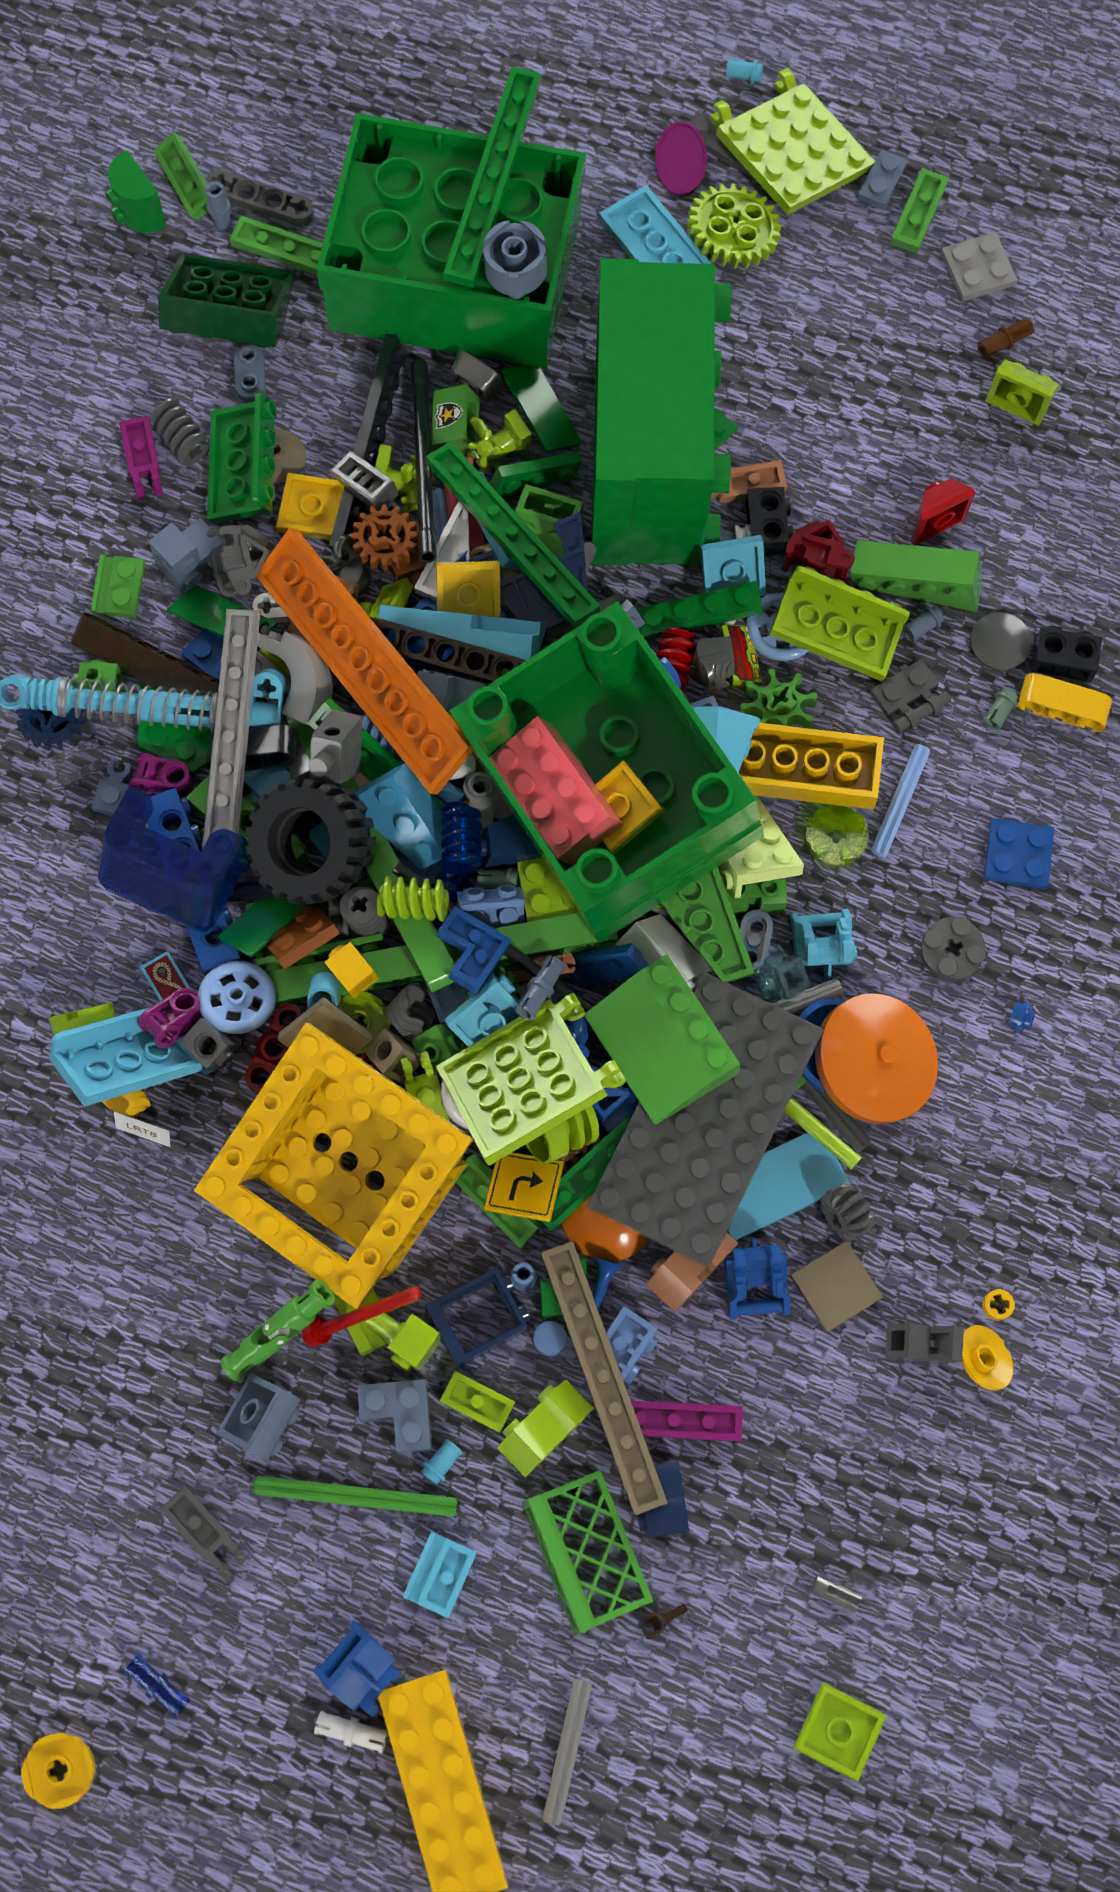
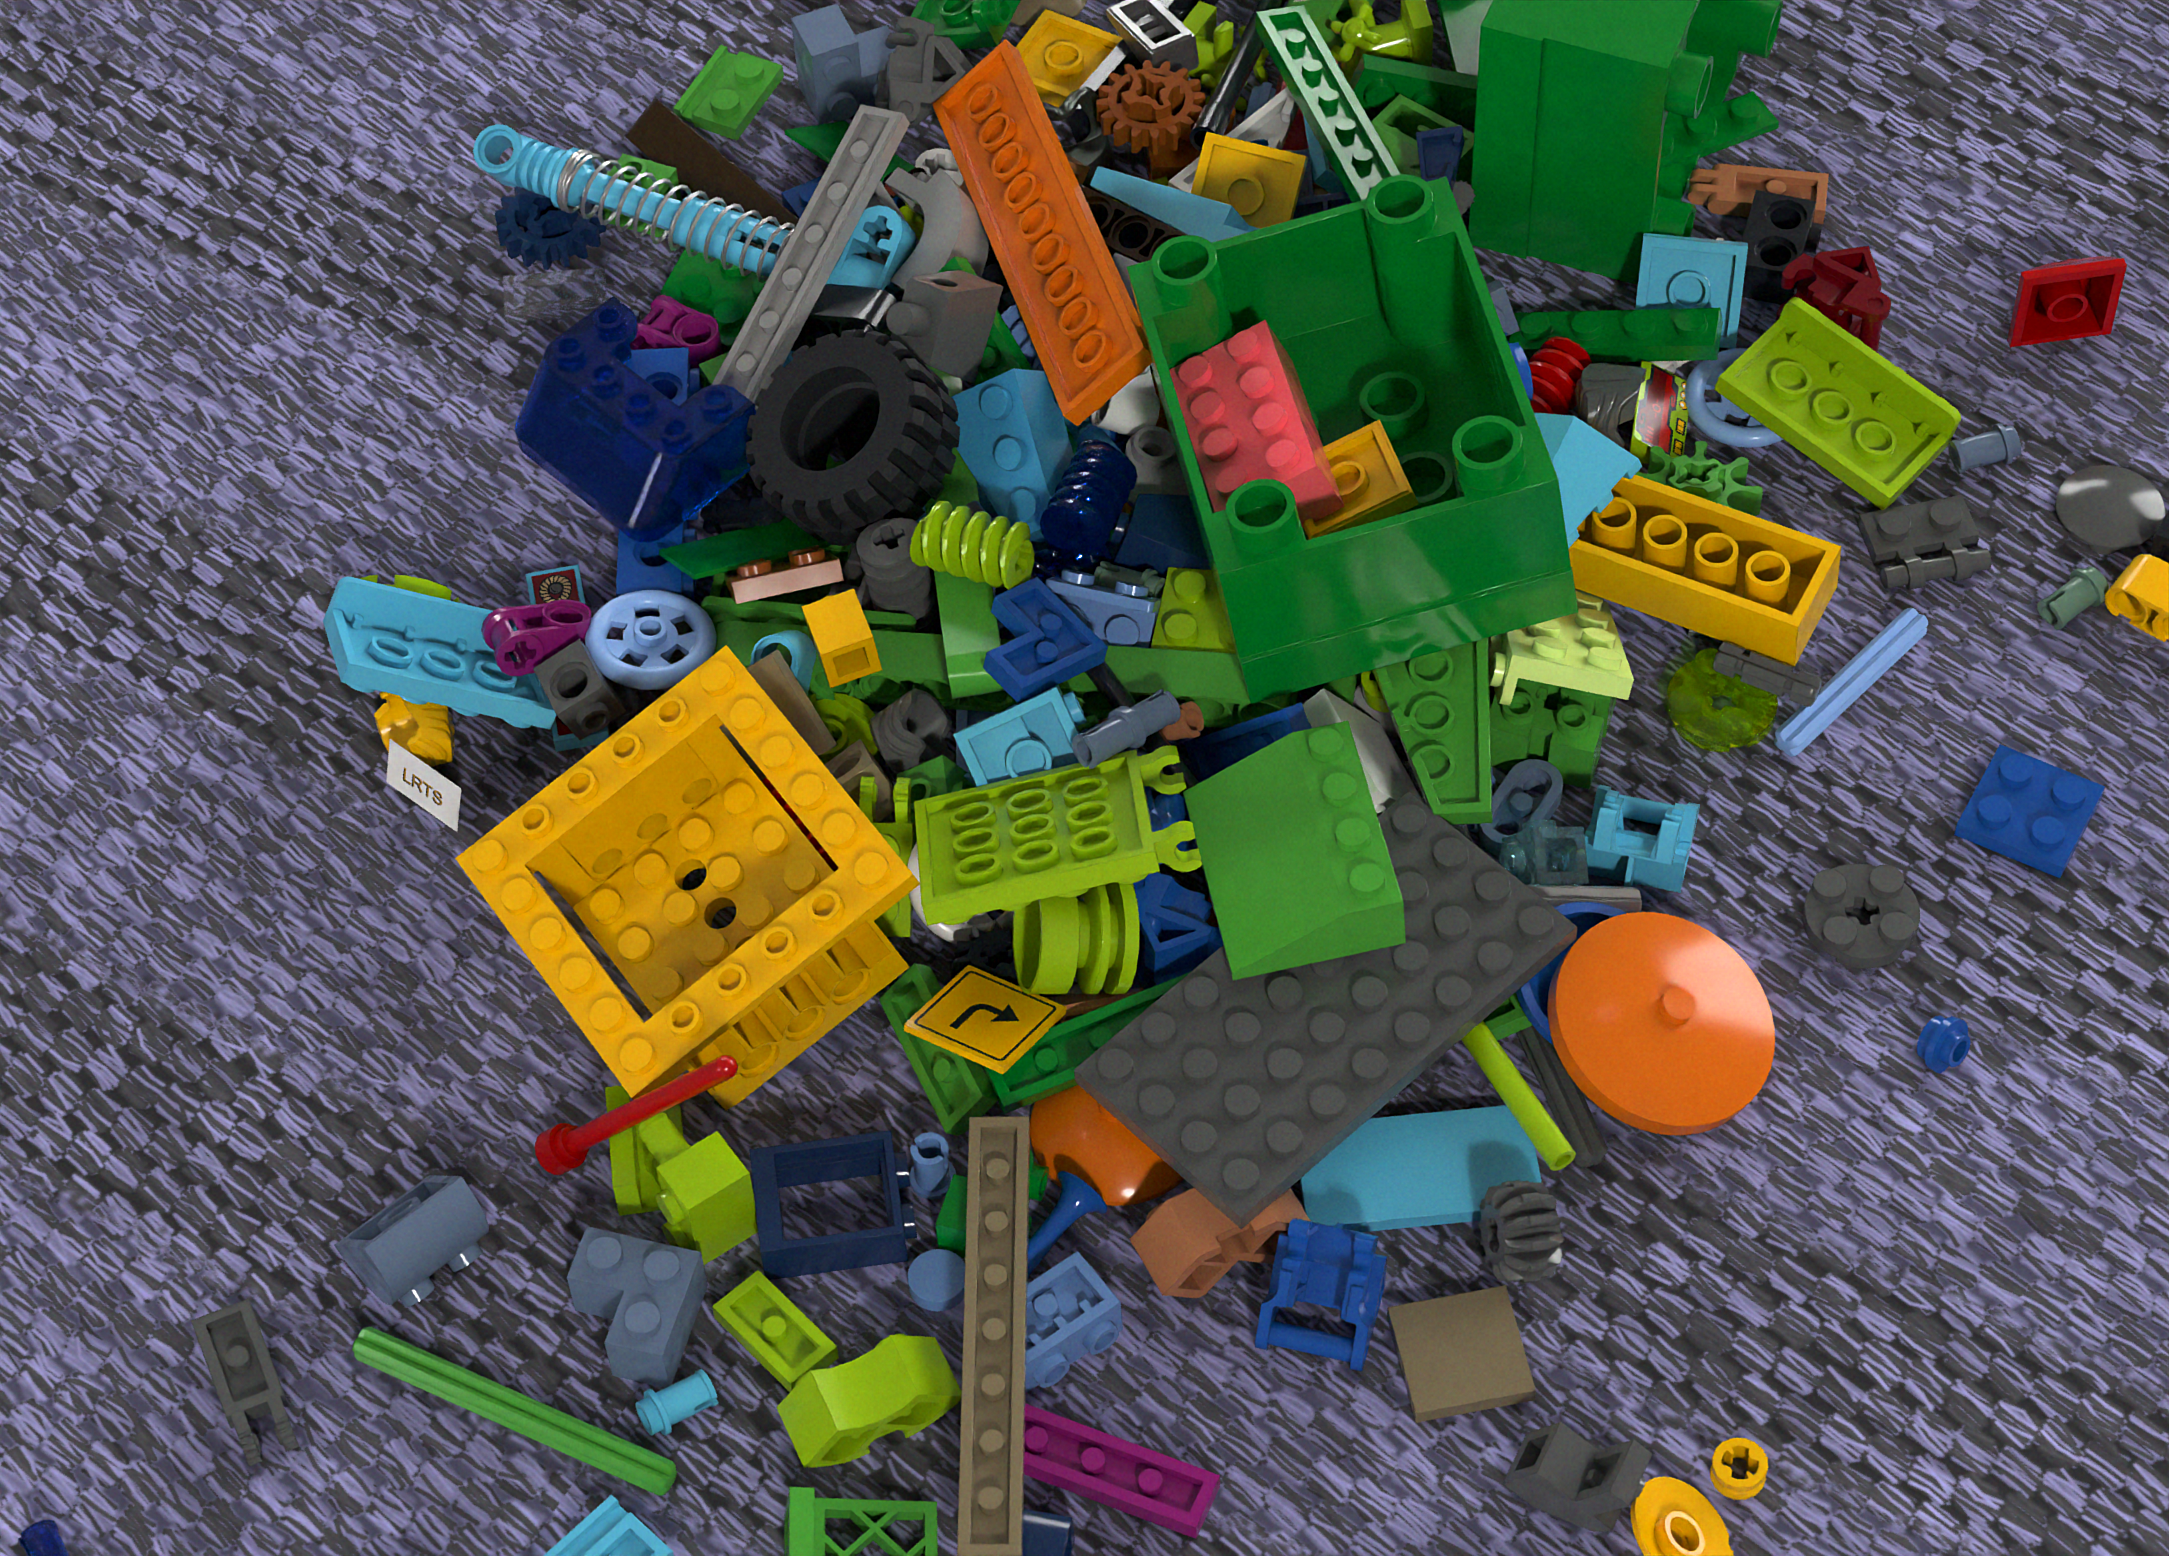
camera: 25 degrees right, 20 degrees down
(277, 1330) = (490, 1107): bright green piece -> none
(859, 817) = (1767, 674): none -> dark grey axle
(919, 573) = (2006, 373): bright green wedge -> none

